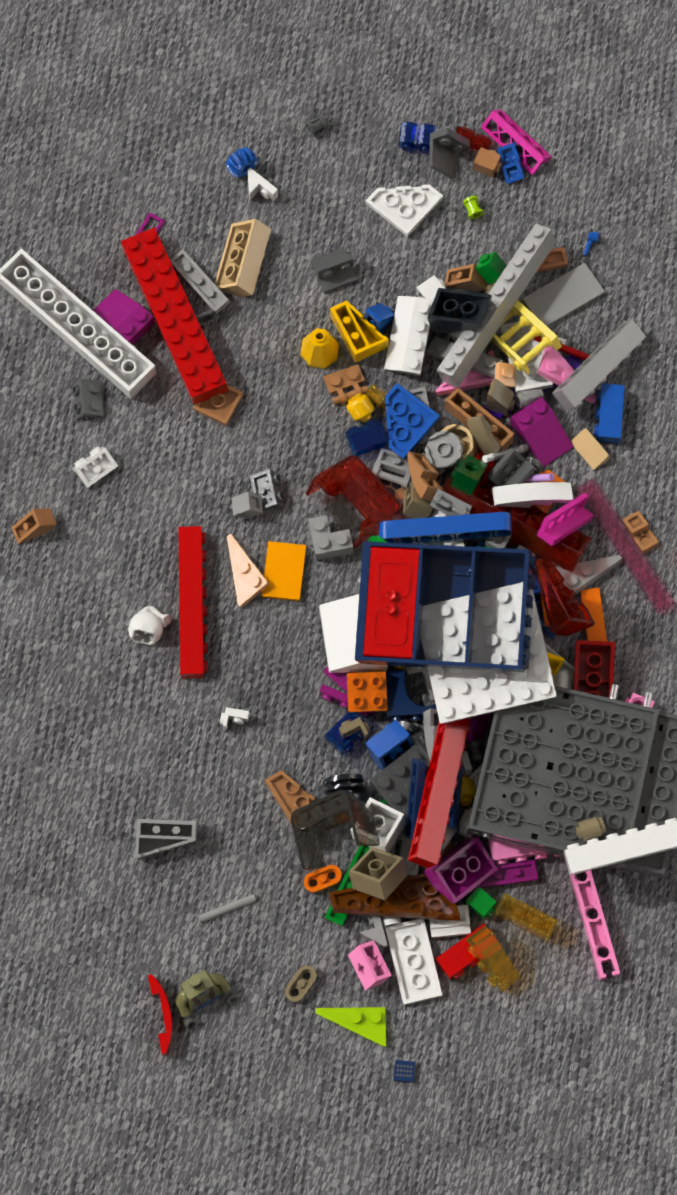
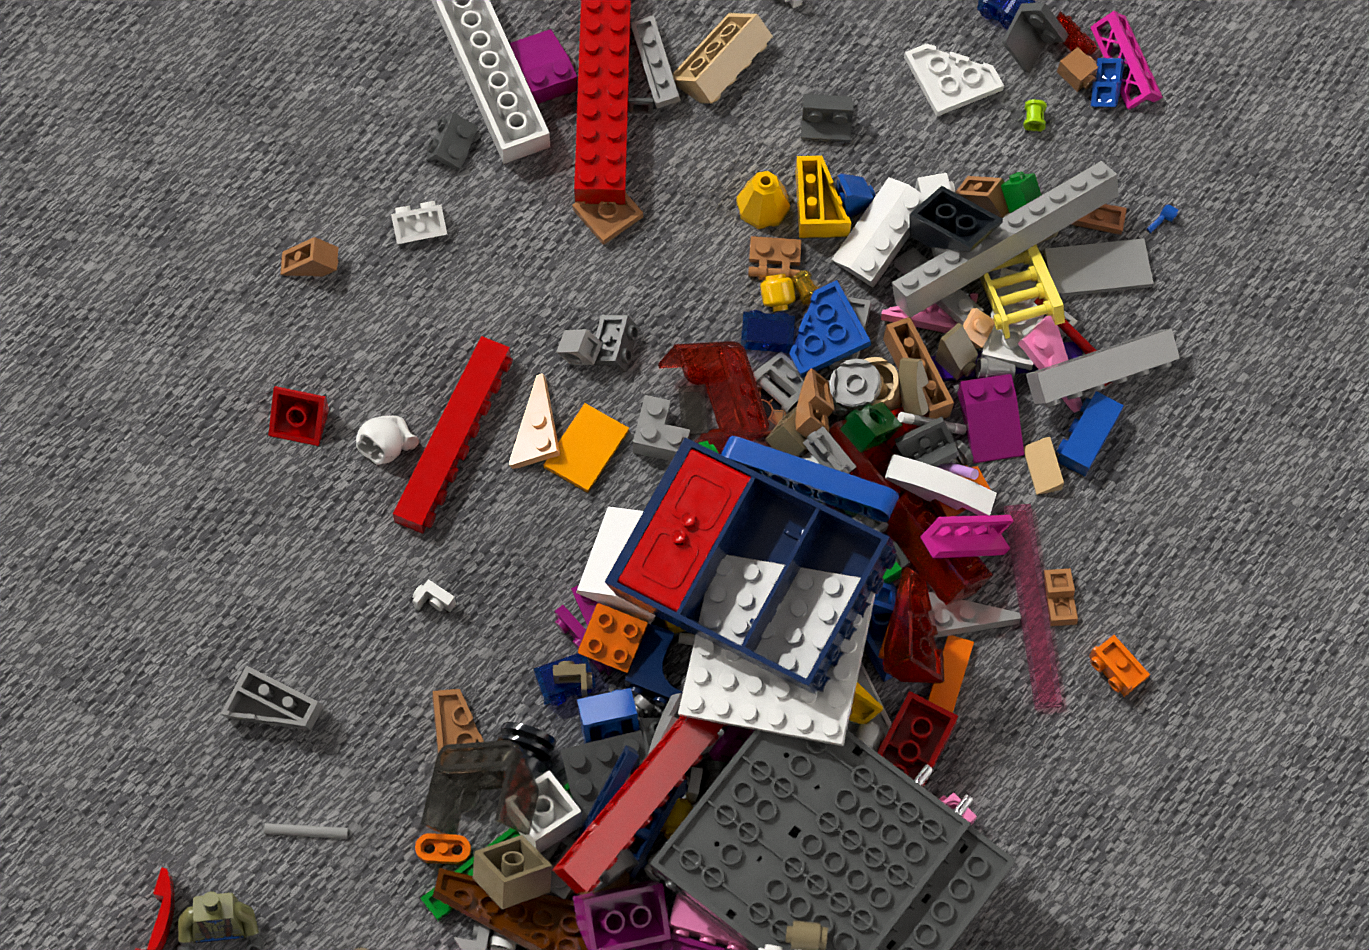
camera: 20 degrees right, 5 degrees down
(81, 636) = (298, 416): none -> red slope

